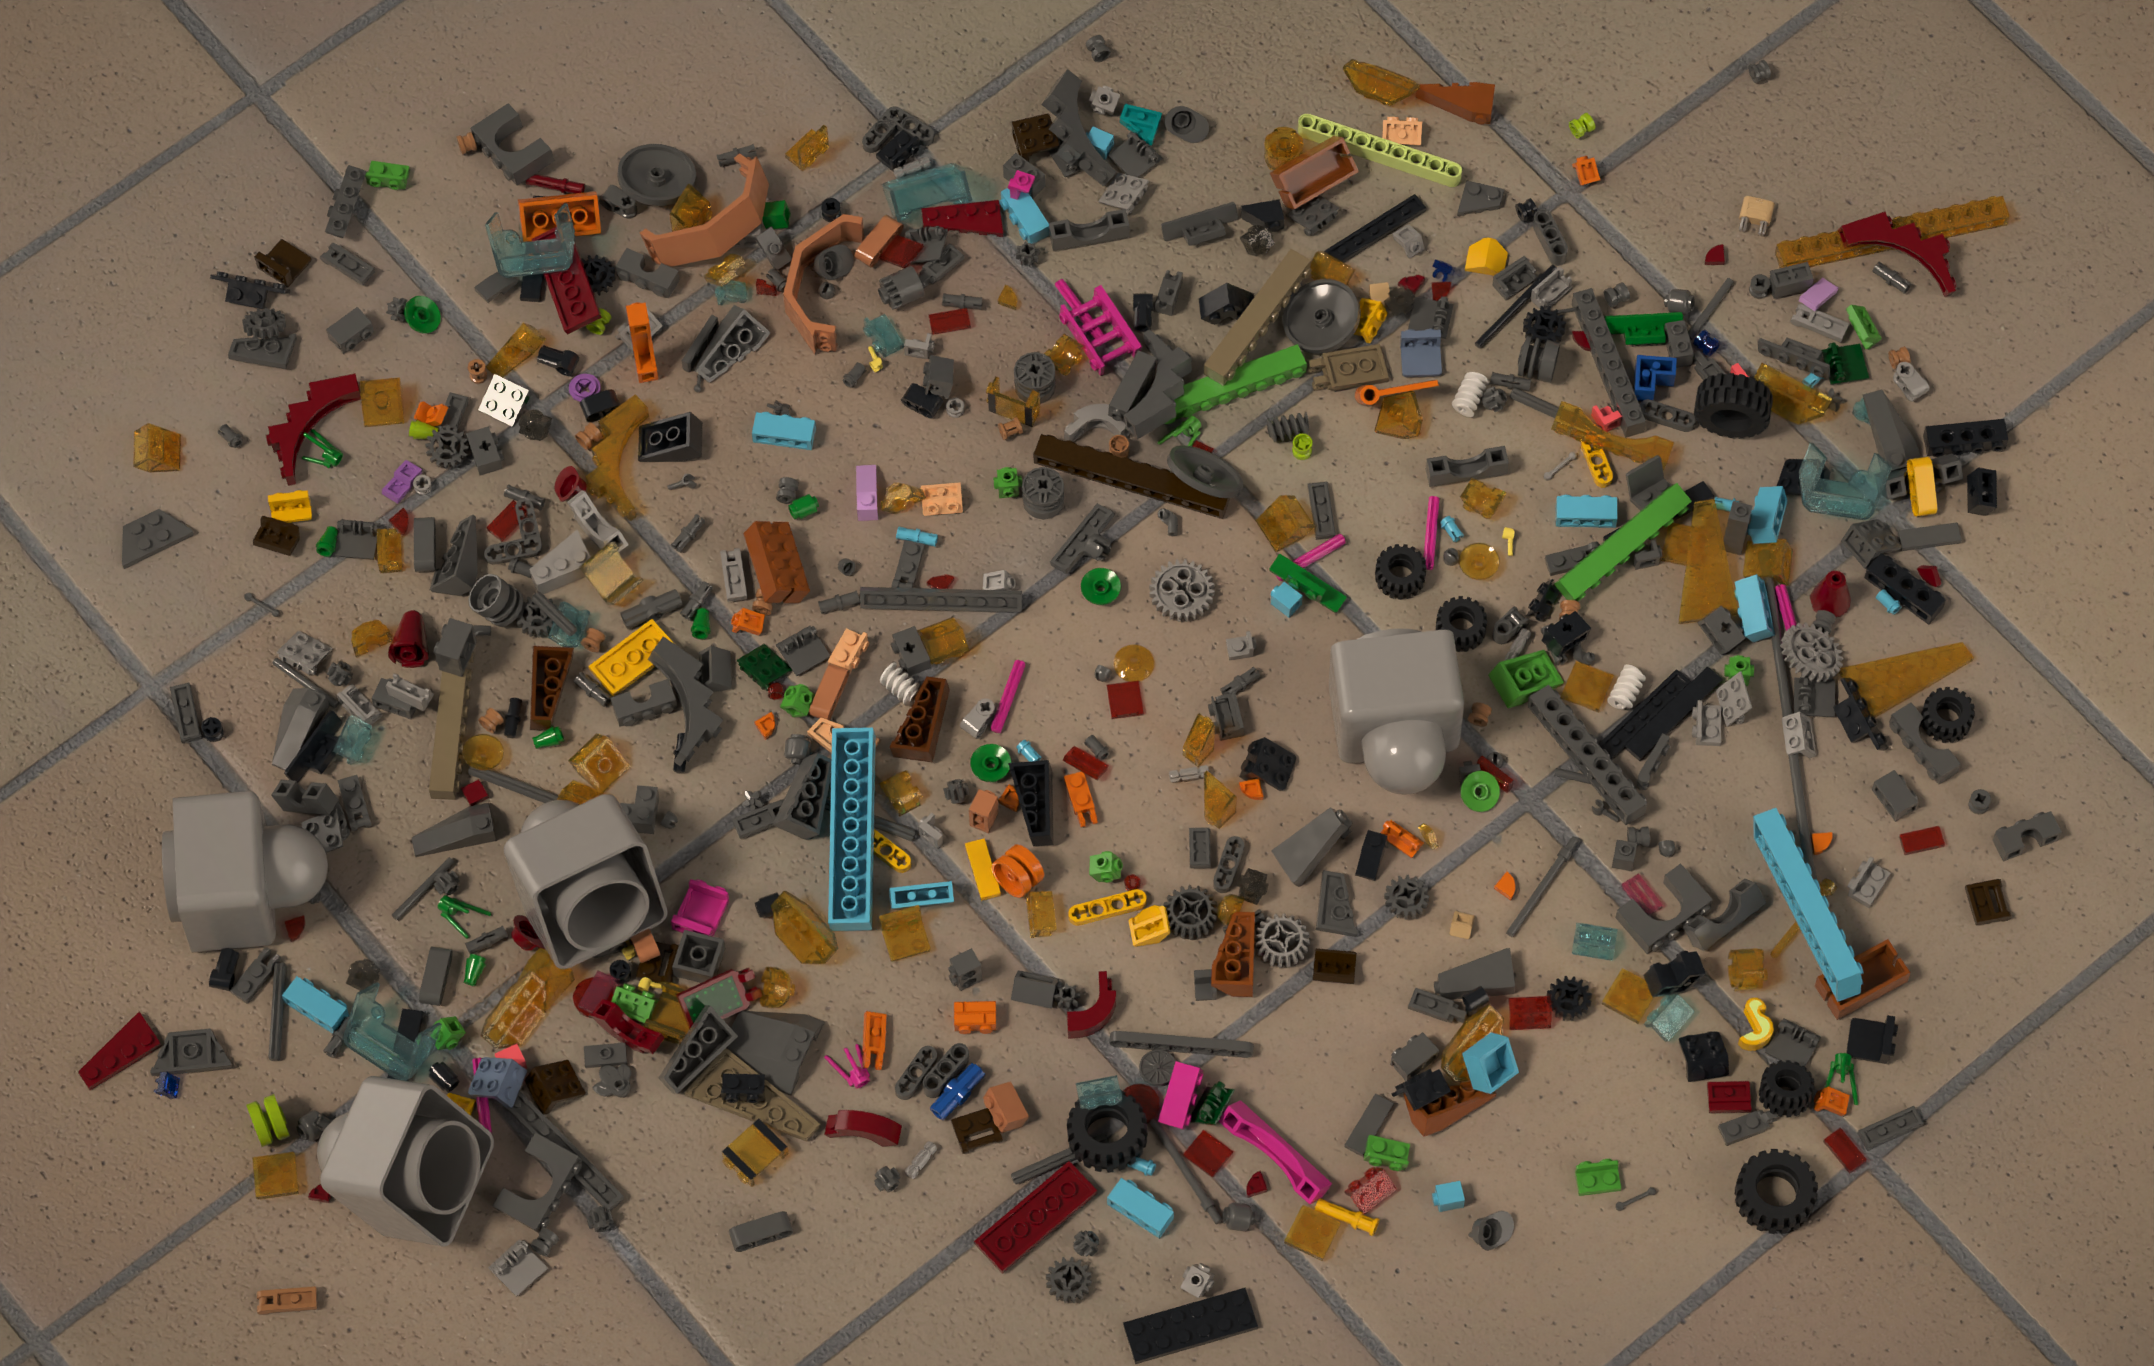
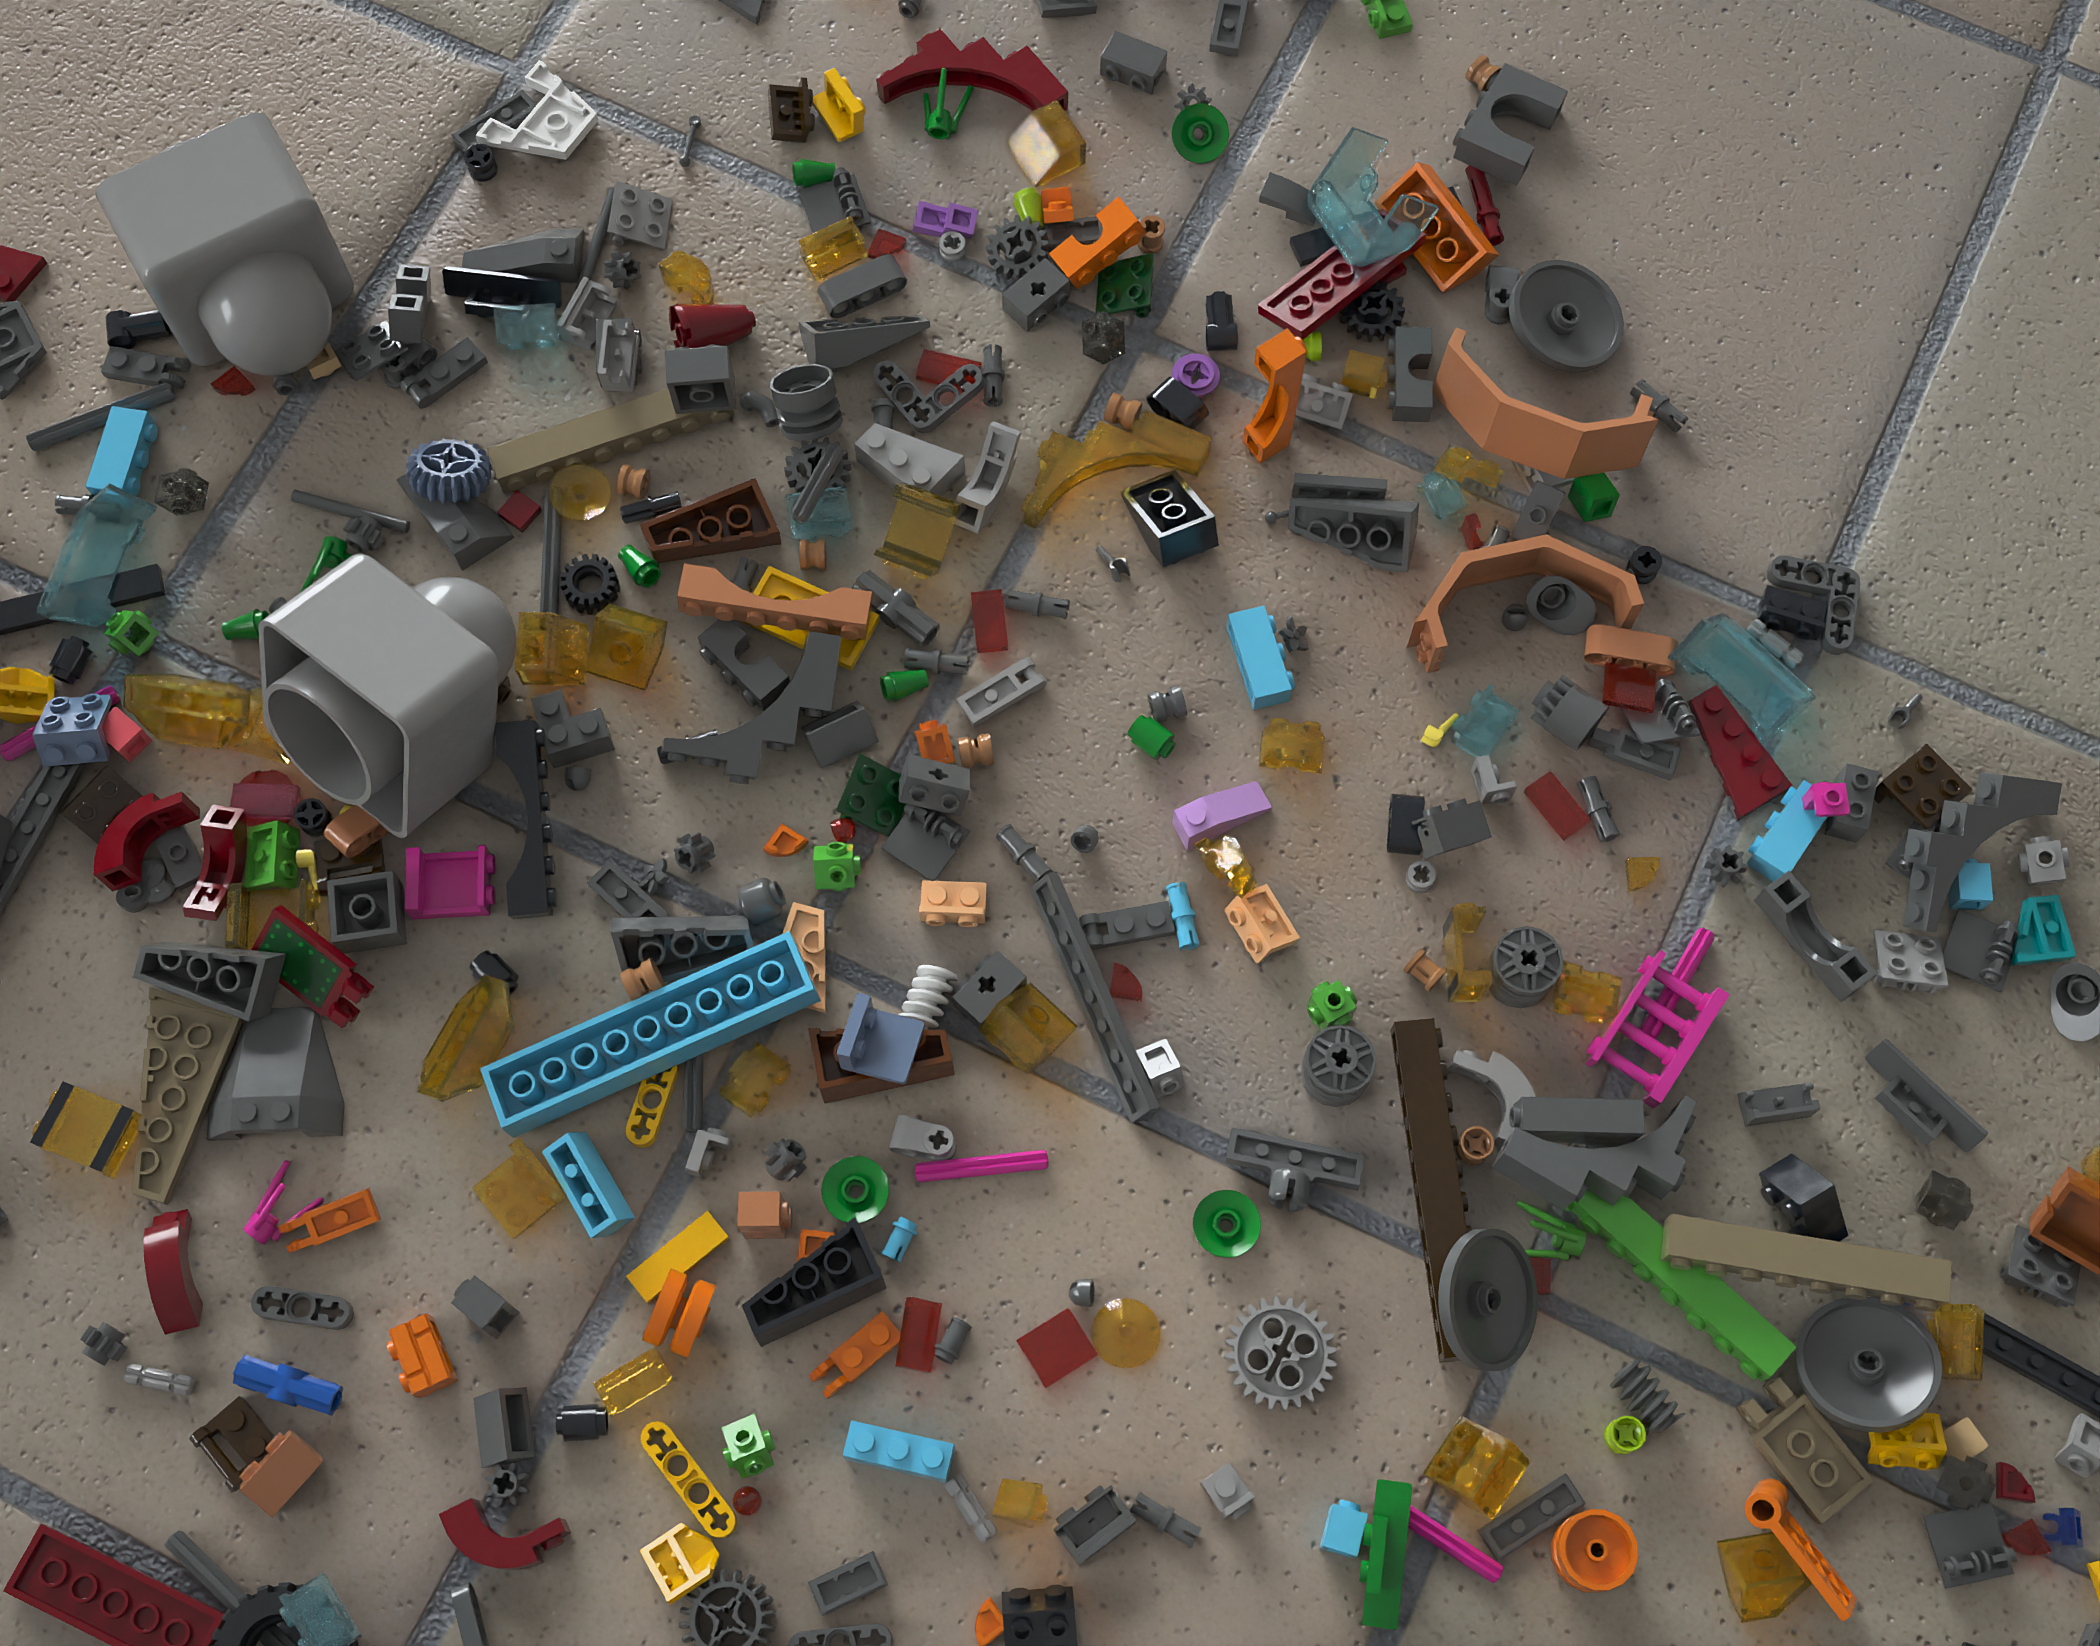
camera: 65 degrees right, 5 degrees up
(208, 675) = (552, 126): none -> white wing
(432, 817) = (448, 470): none -> sand blue gear
(435, 976) = (219, 583): dark grey beam -> none
(472, 382) = (1119, 232): none -> orange arch
(516, 350) = (1209, 267): clear yellow slope -> none
(546, 758) = (585, 568): none -> black tyre
(569, 484) = (1034, 423): dark red piece -> none
(580, 1067) = (132, 831): none -> dark red arch
(596, 697) = (838, 613): none -> nougat arch
(633, 294) = (1364, 374): none -> clear yellow brick
(684, 563) = (989, 621): none -> clear red tile
(690, 210) = (1533, 377): clear yellow slope -> none
(726, 865) = (530, 884): none -> black arch
(743, 1087) = (177, 1066): black bracket -> none
(750, 772) = (694, 852): none -> dark grey gear
(776, 562) = (1039, 738): dark orange piece -> none
(776, 628) = (934, 785): none -> dark grey brick
(776, 987) = (359, 1043): clear yellow cylinder -> none
(808, 148) = (1723, 493): clear yellow bracket -> none
(820, 818) = (642, 979): none -> medium nougat wheel
(829, 692) = (871, 904): nougat beam -> none
(845, 438) = (1292, 745): none -> clear yellow cylinder
(856, 372) = (1398, 712): dark grey pin -> none
(919, 708) = (879, 1042): none -> sand blue bracket
(947, 1061) = (301, 1344): dark grey beam -> none
(984, 124) = (1905, 711): none -> dark grey hand
(1051, 947) = (582, 1422): none -> black brick
(1142, 306) = (1733, 1074): black piece -> none
(1143, 794) = (899, 1451): none -> medium azure brick
(1170, 520) = (1394, 1281): dark grey arm -> none
(1218, 801) = (930, 1576): clear yellow slope -> none
(1265, 214) = (1994, 1192): black slope -> none
(1352, 486) = (1609, 1536): none -> orange wheel
(1421, 353) = (1893, 1559): sand blue bracket -> none

